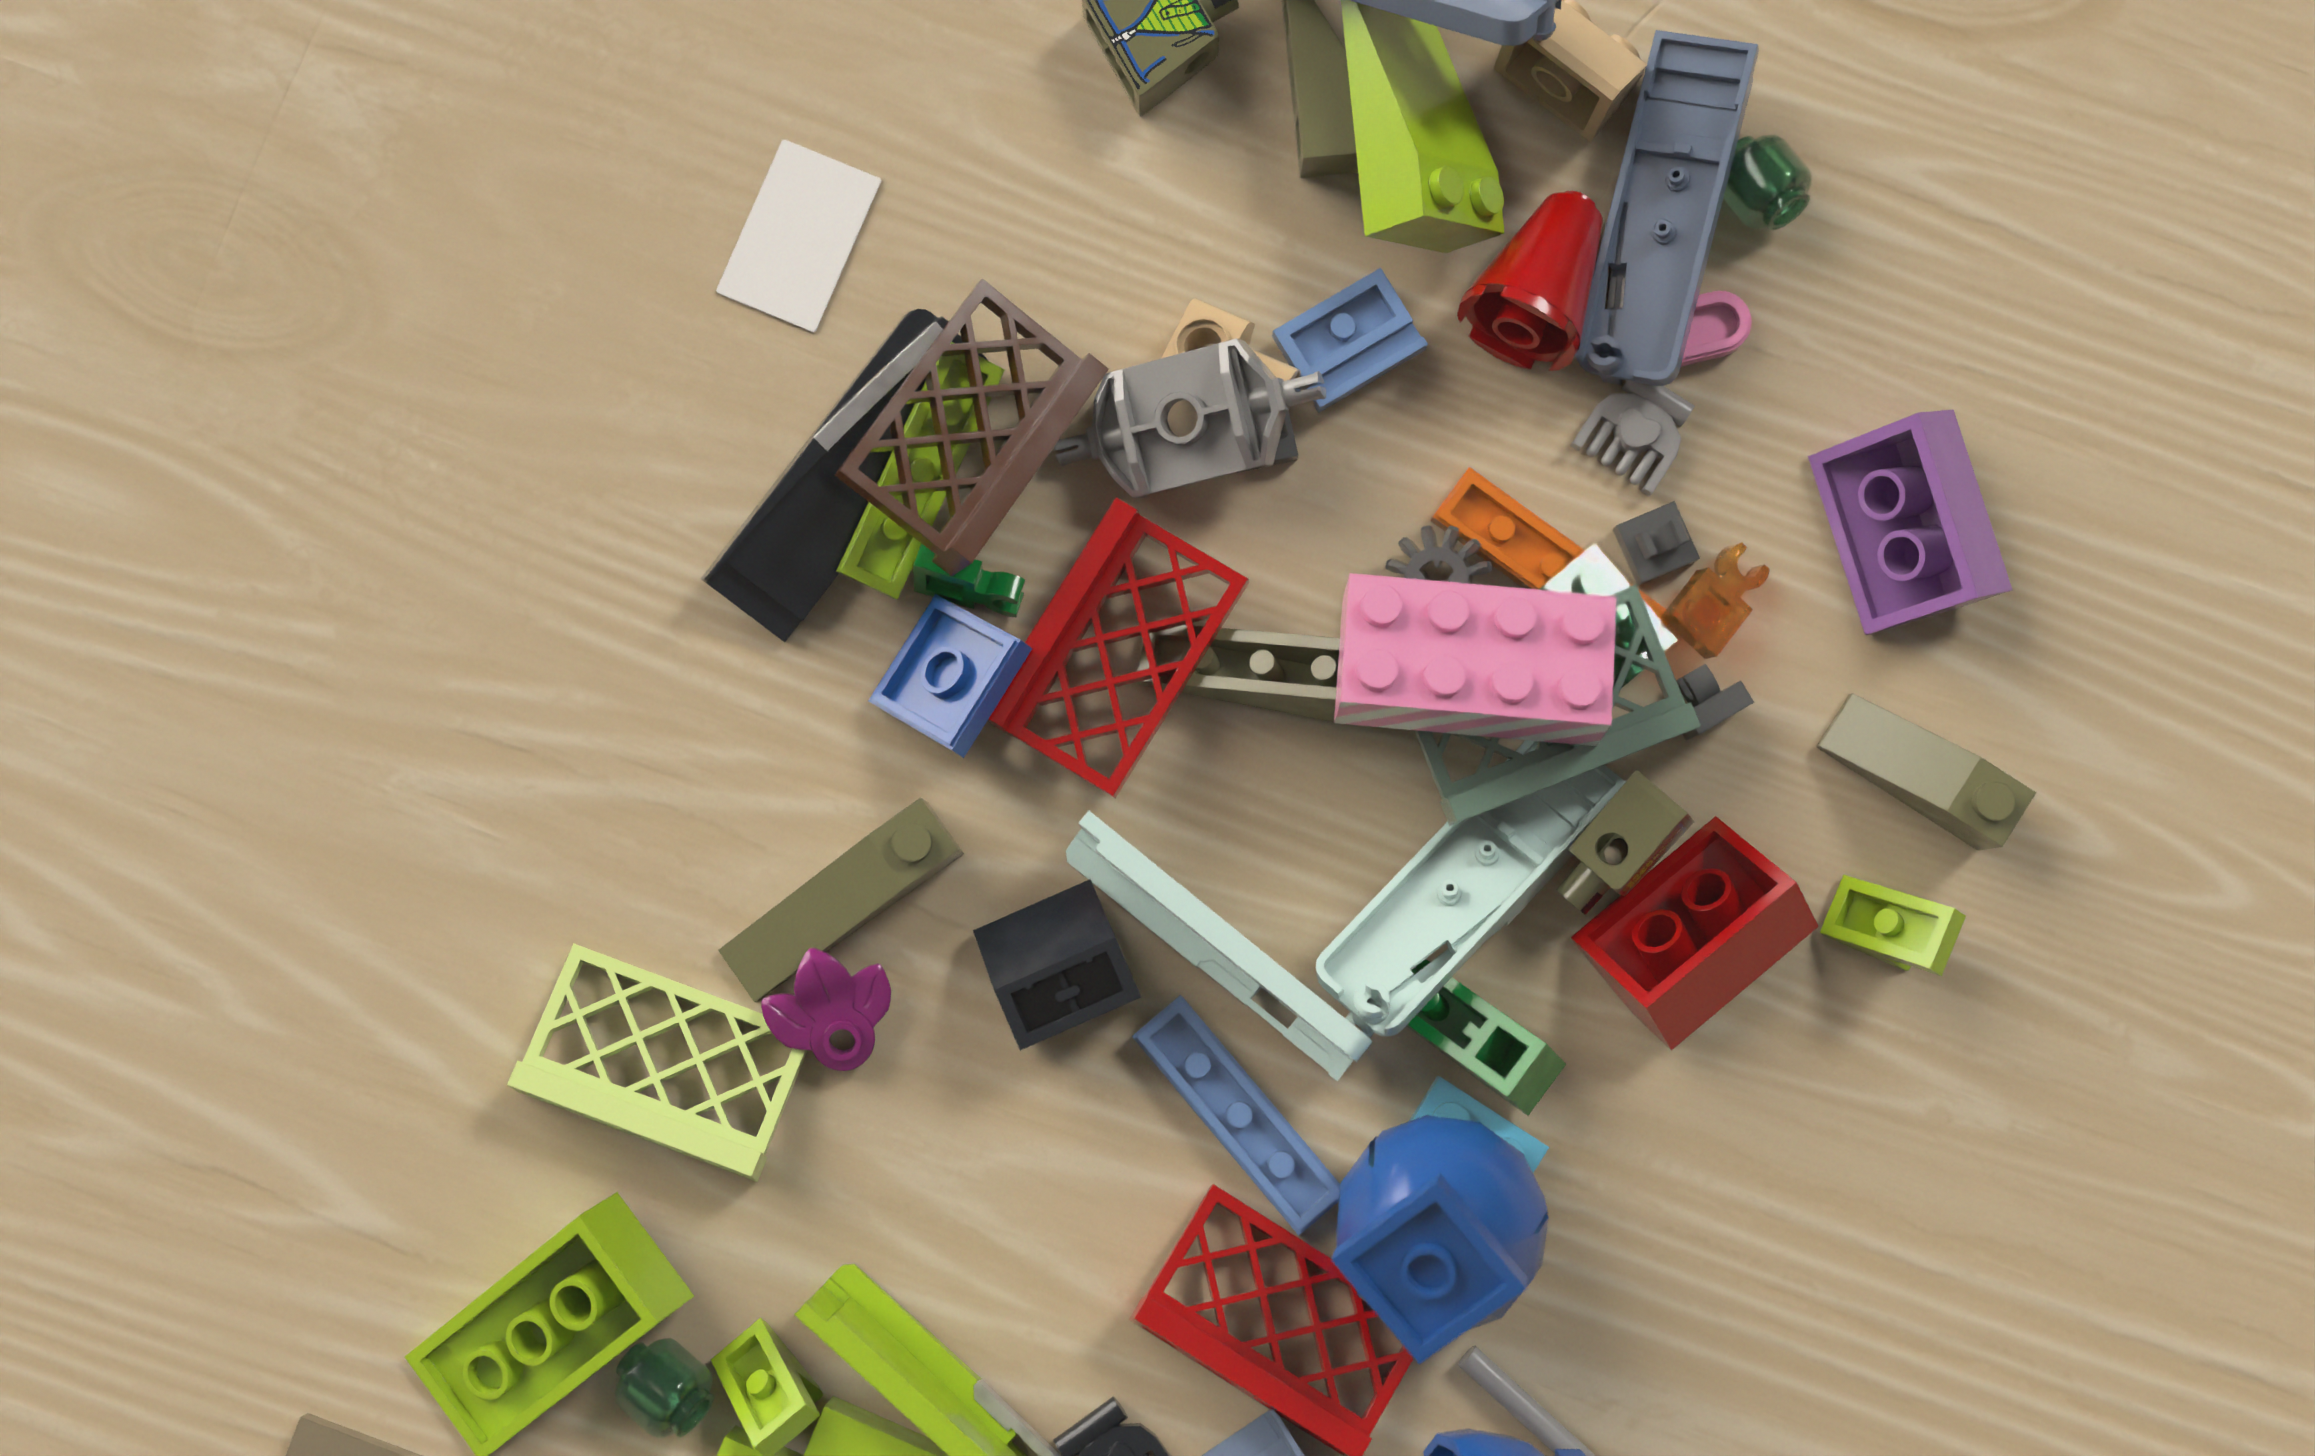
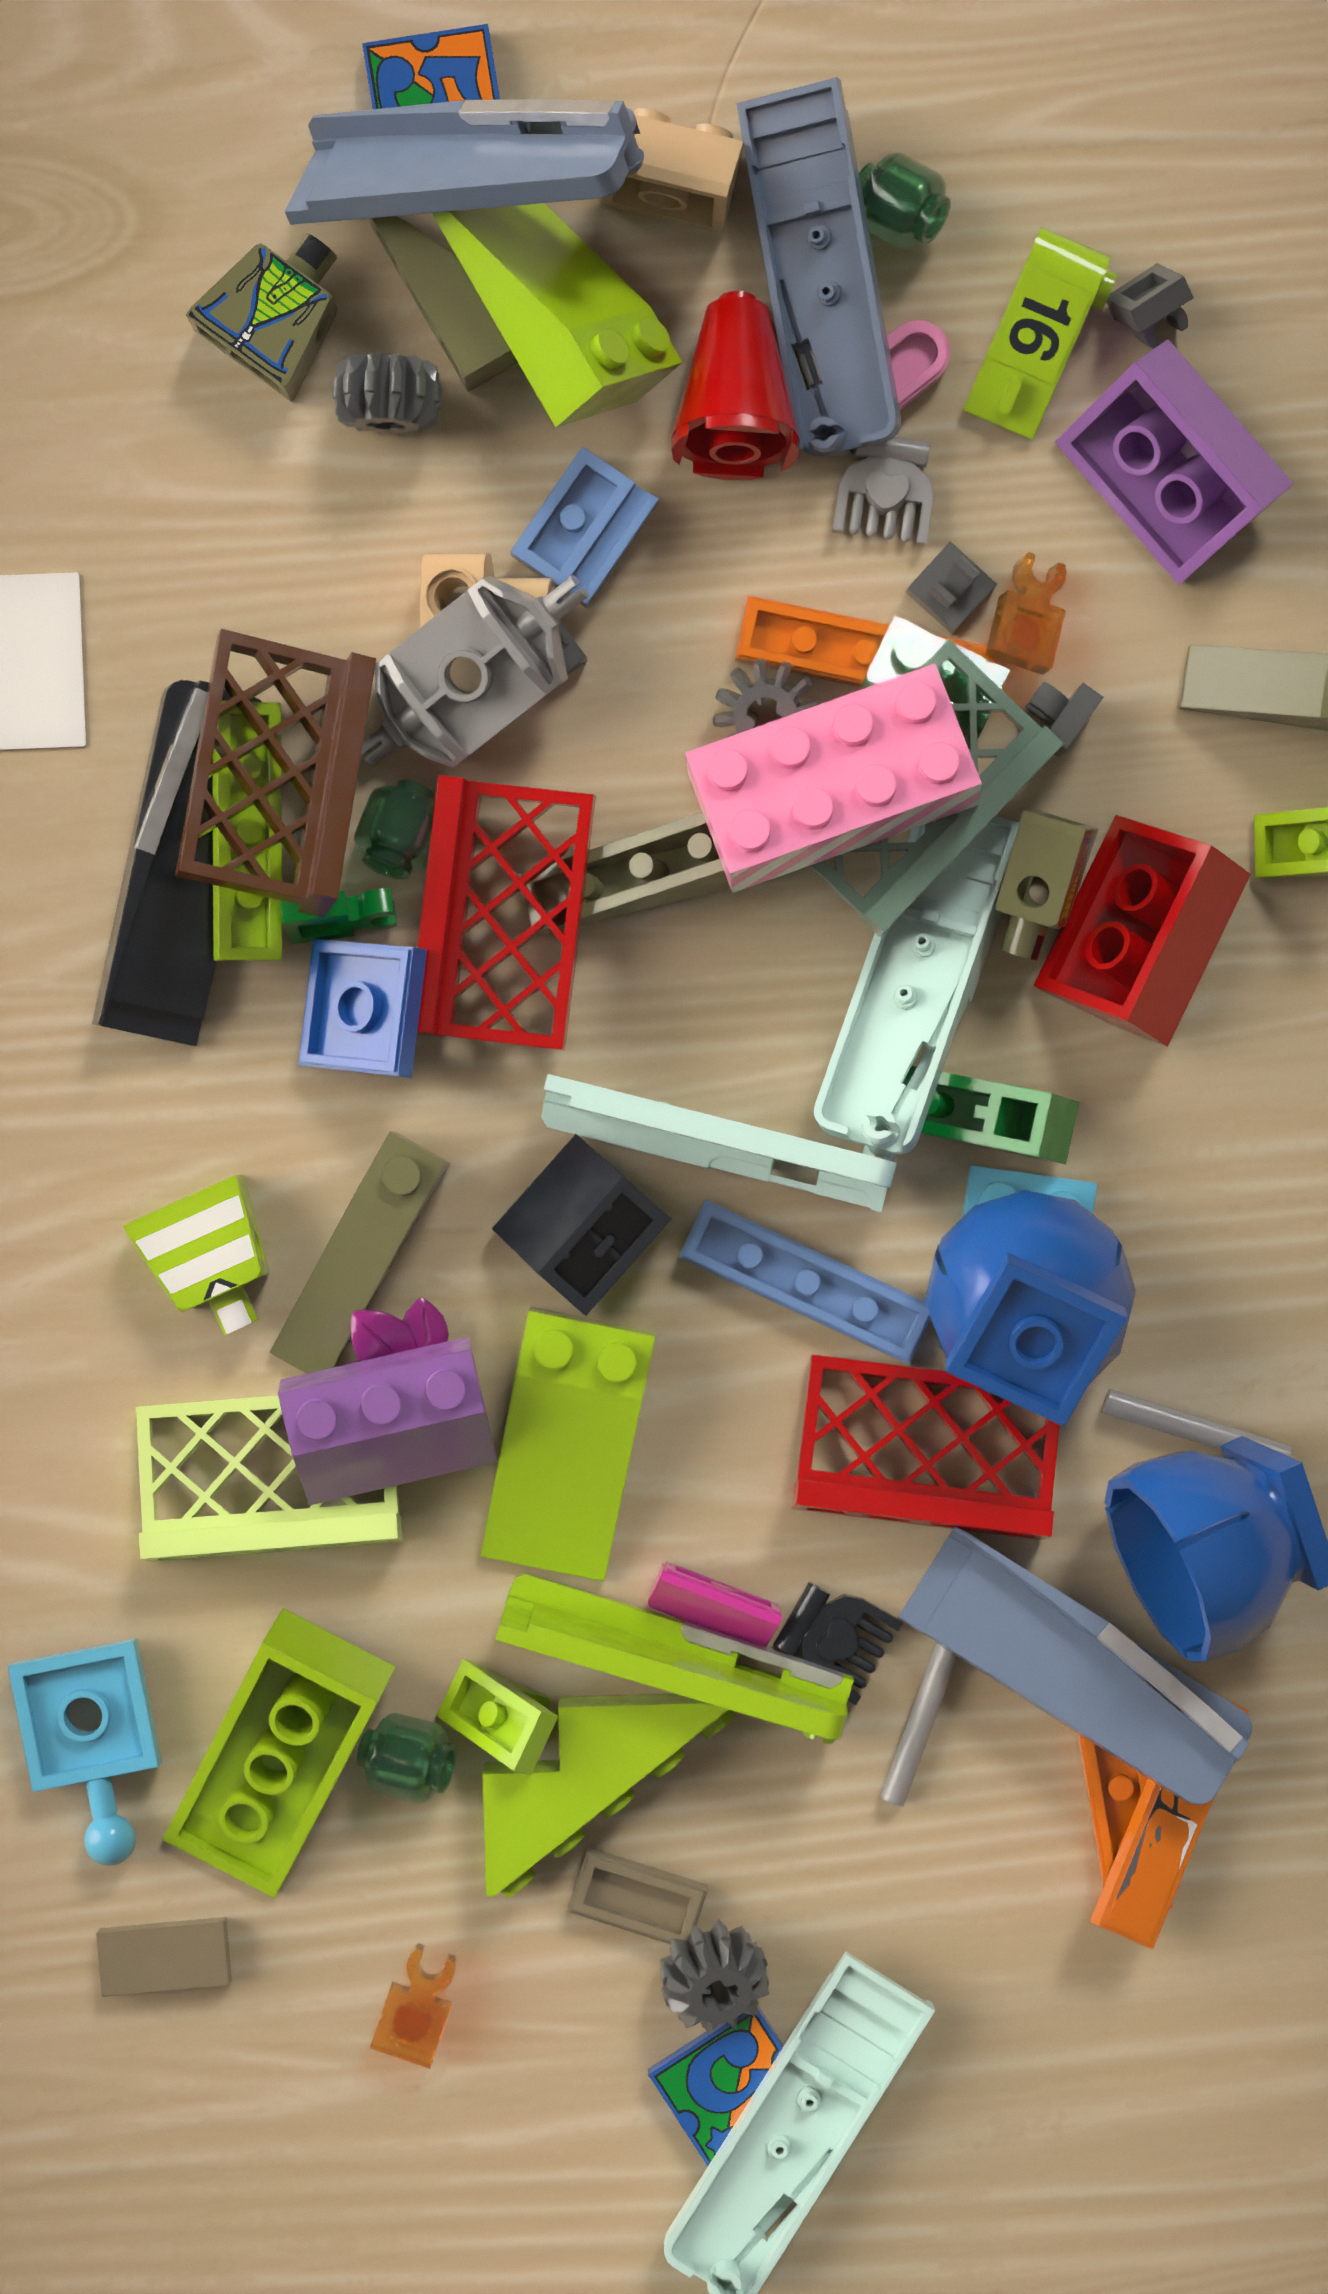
camera: 25 degrees left, 5 degrees up
(355, 1237) = (65, 1755): none -> medium azure plate
(704, 830) = (206, 1250): none -> torso
(792, 1062) = (386, 1421): none -> medium lavender slope
(949, 1161) = (567, 1443): none -> lime slope
(1015, 1376) = (714, 1604): none -> dark pink slope
(1055, 530) = (396, 829): none -> clear green head
(1227, 142) = (387, 393): none -> dark grey gear
(1838, 352) = (1039, 331): none -> lime door
(1951, 367) = (1149, 299): none -> dark grey tile

